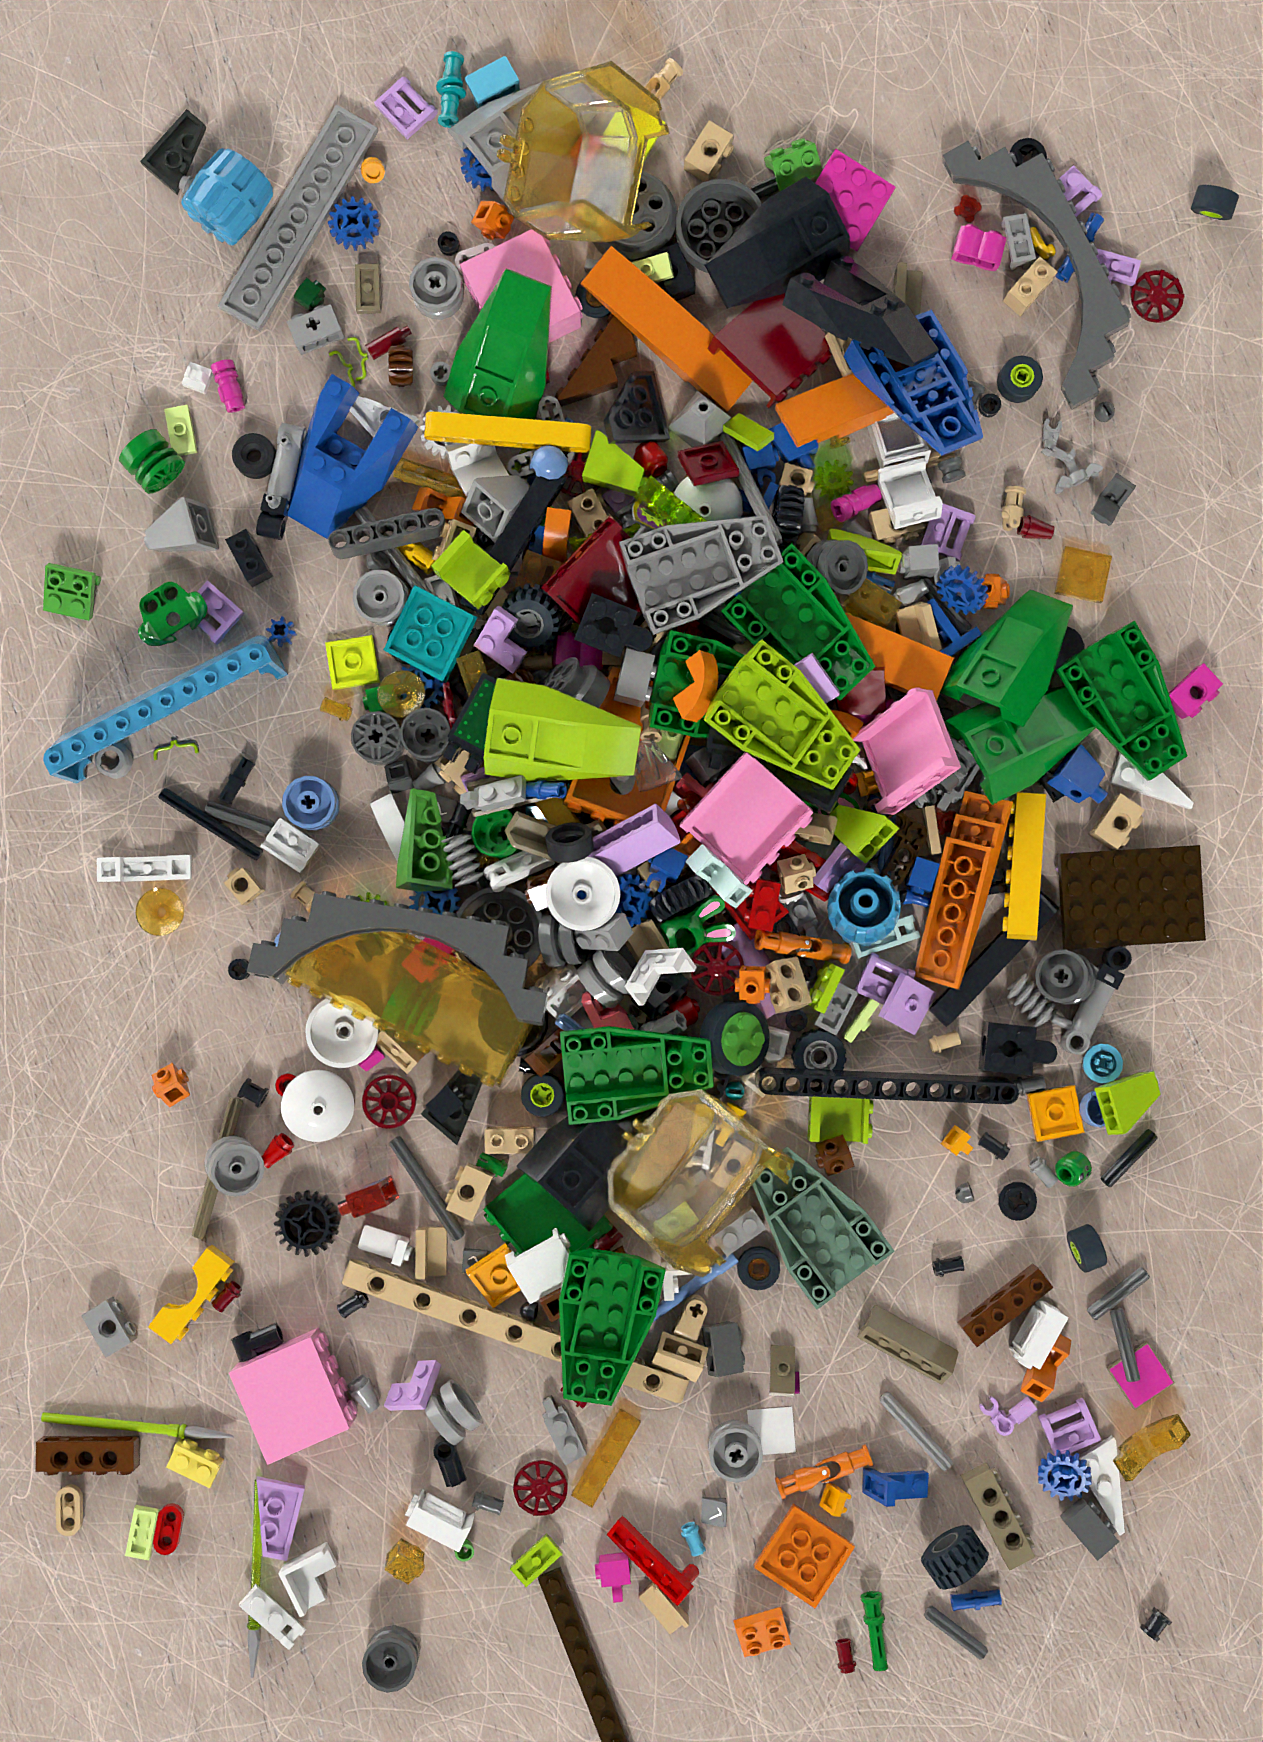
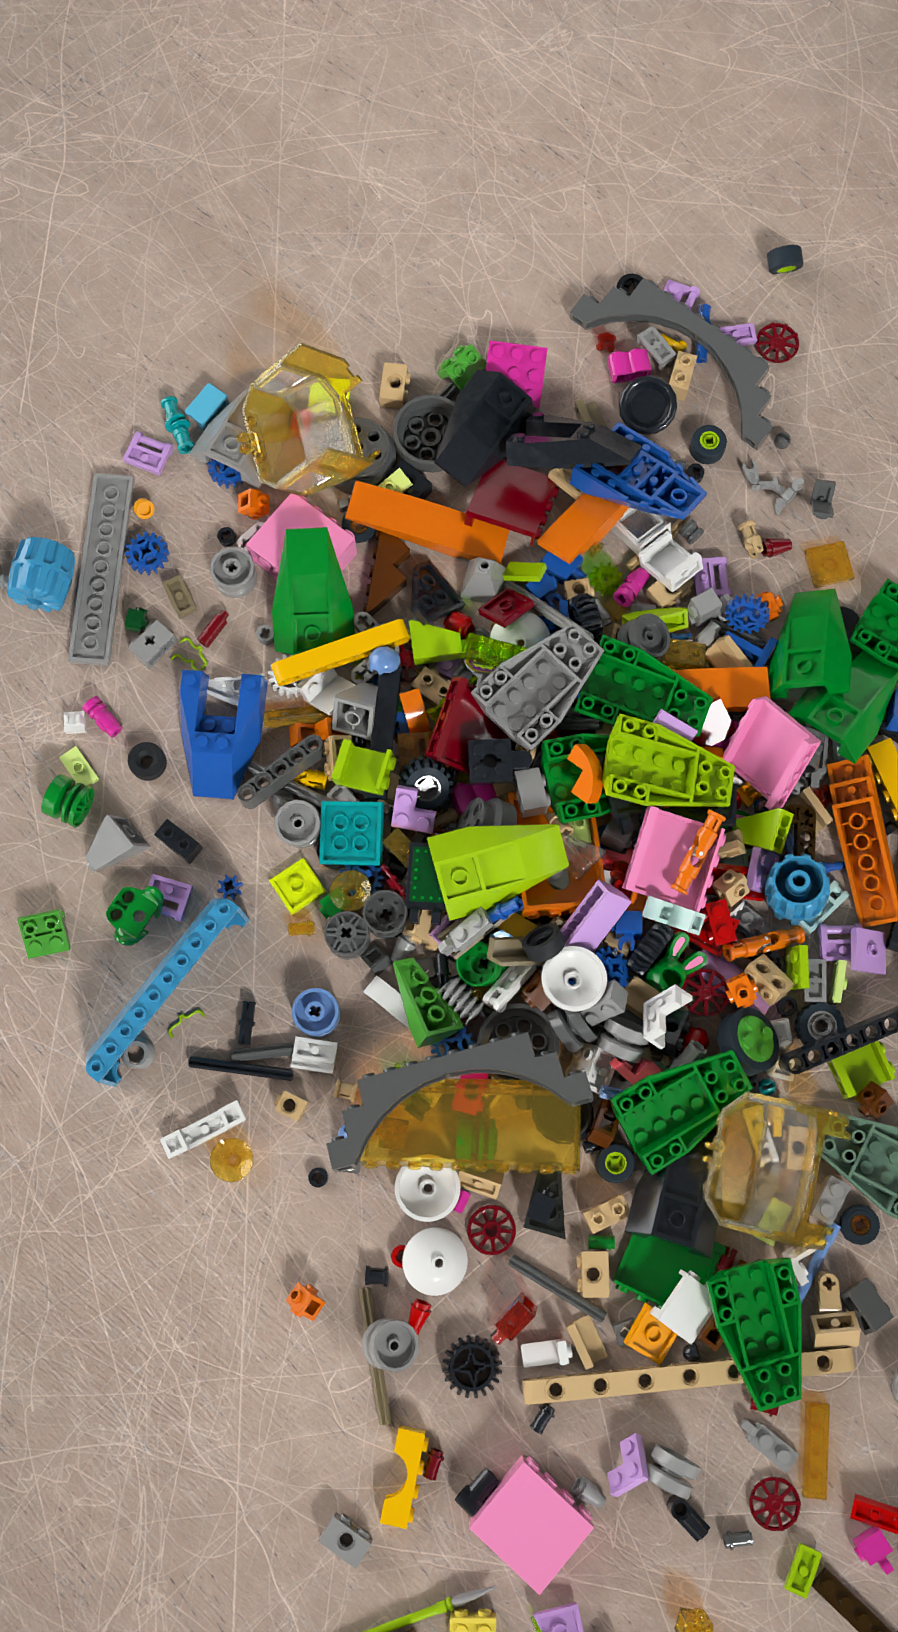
camera: 20 degrees left, 10 degrees down
(276, 502) = (180, 786): light grey piece -> none
(400, 365) = (232, 641): reddish brown gear -> none
(439, 1520) = (706, 1574): white window -> none
(465, 1556) = (738, 1598): bright green hinge -> none
(664, 78) = (336, 344): tan piece -> none
(784, 815) = (702, 843): none -> orange piece
(922, 875) = (827, 845): blue brick -> none
(975, 303) = (648, 405): none -> black piece

